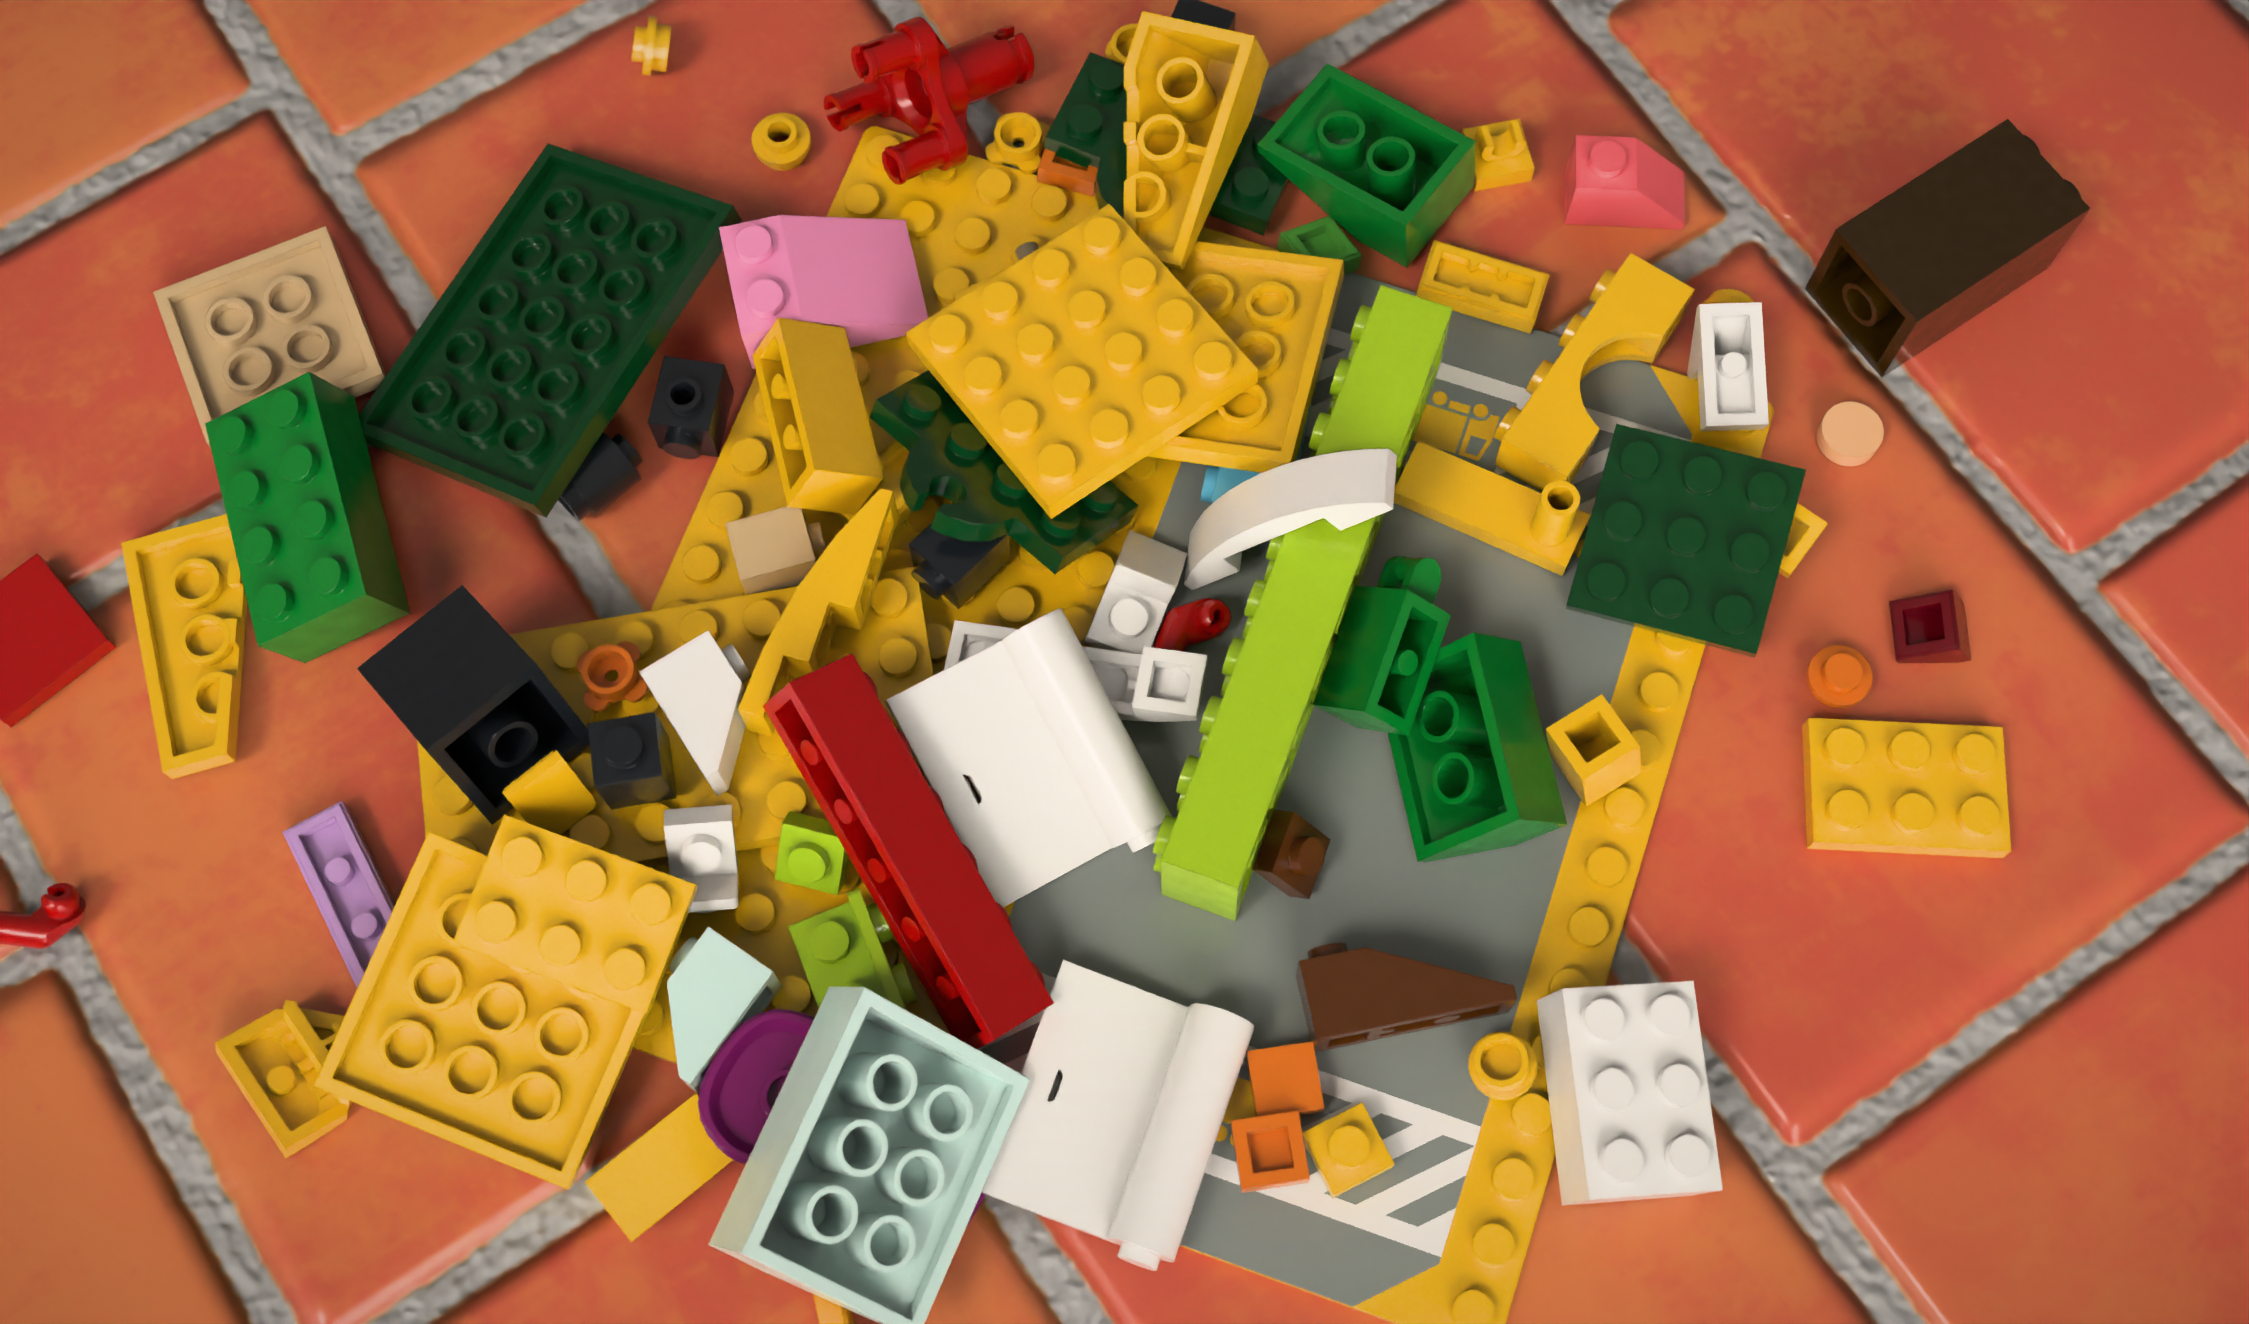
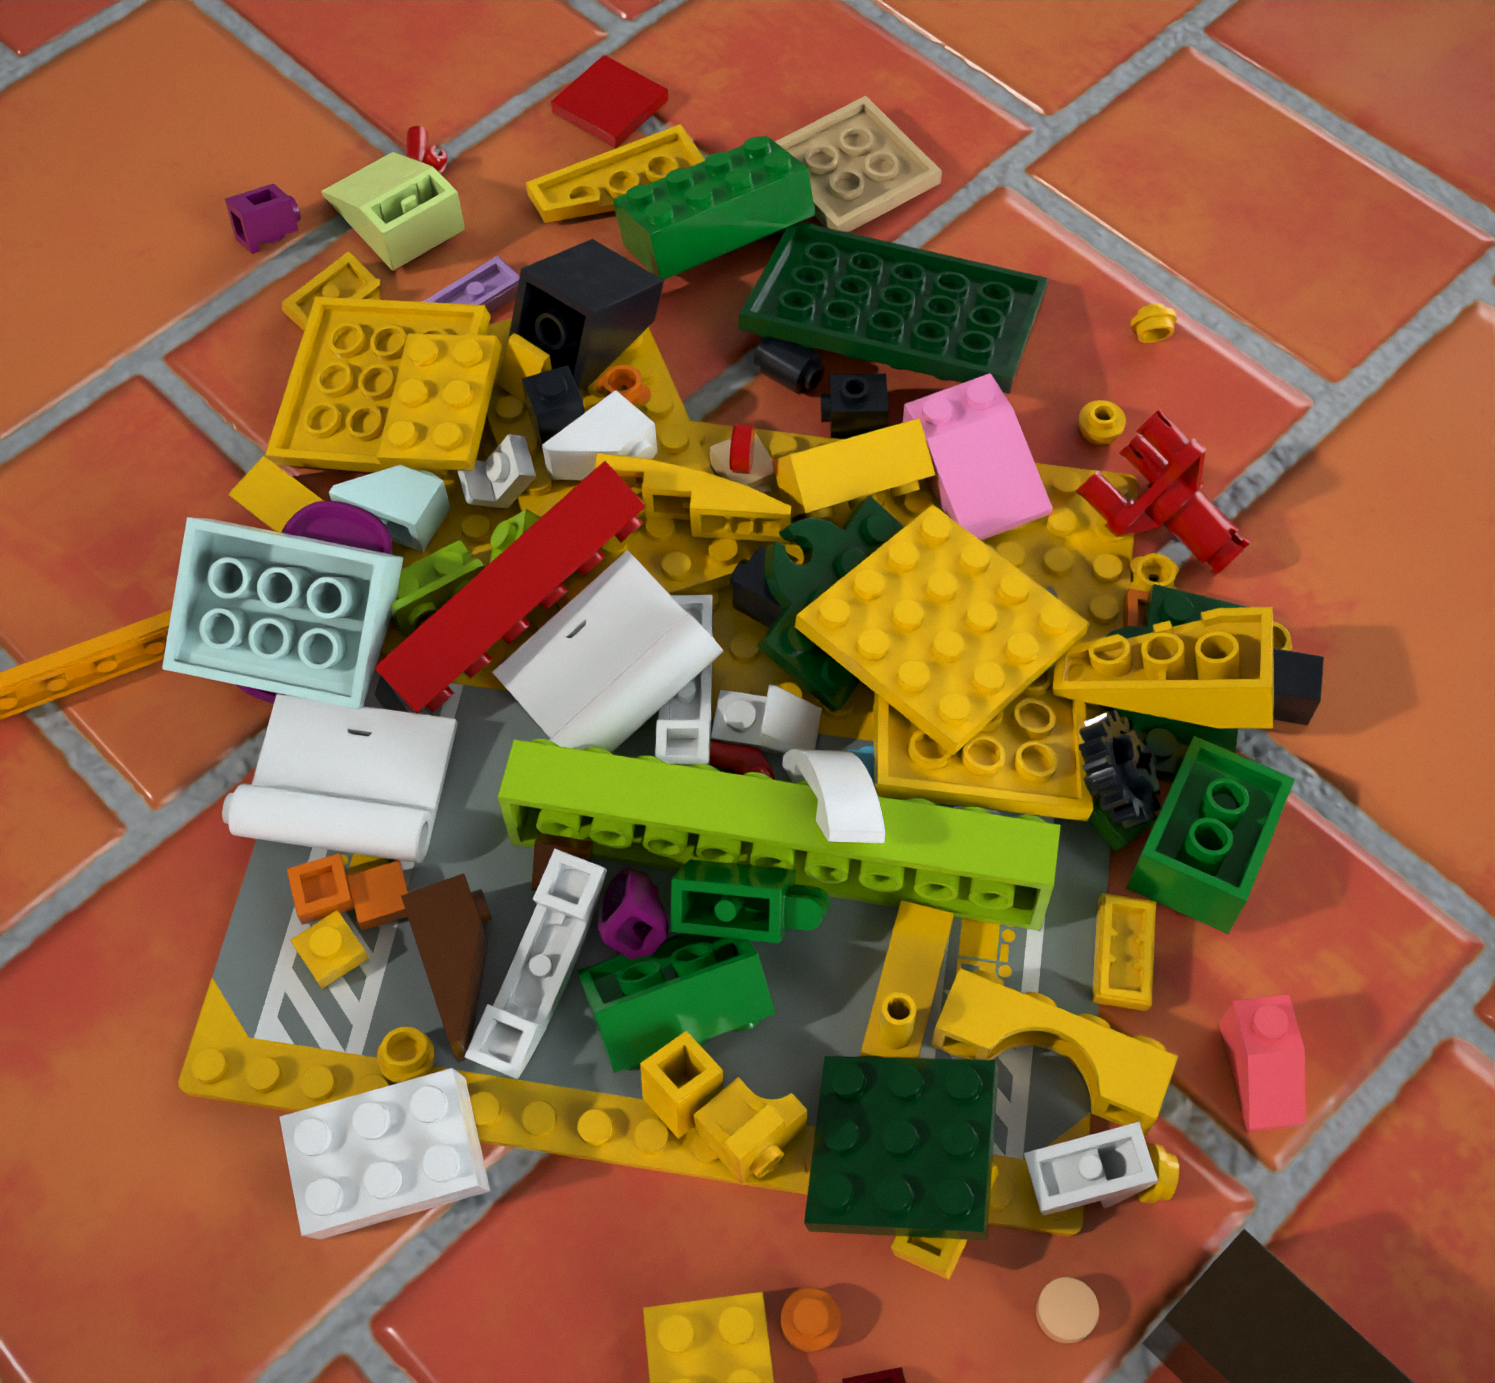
camera: 80 degrees right, 10 degrees down
(99, 1171) = (262, 216): none -> magenta brick
(138, 967) = (398, 207): none -> yellowish green slope
(772, 531) = (742, 448): none -> red tile
(1299, 220) = (1120, 769): none -> black gear
(1367, 780) = (632, 915): none -> magenta rock
(1415, 897) = (541, 965): none -> white slope
(1500, 155) = (1267, 951): yellow tile -> none
(1656, 685) = (749, 1129): none -> yellow brick

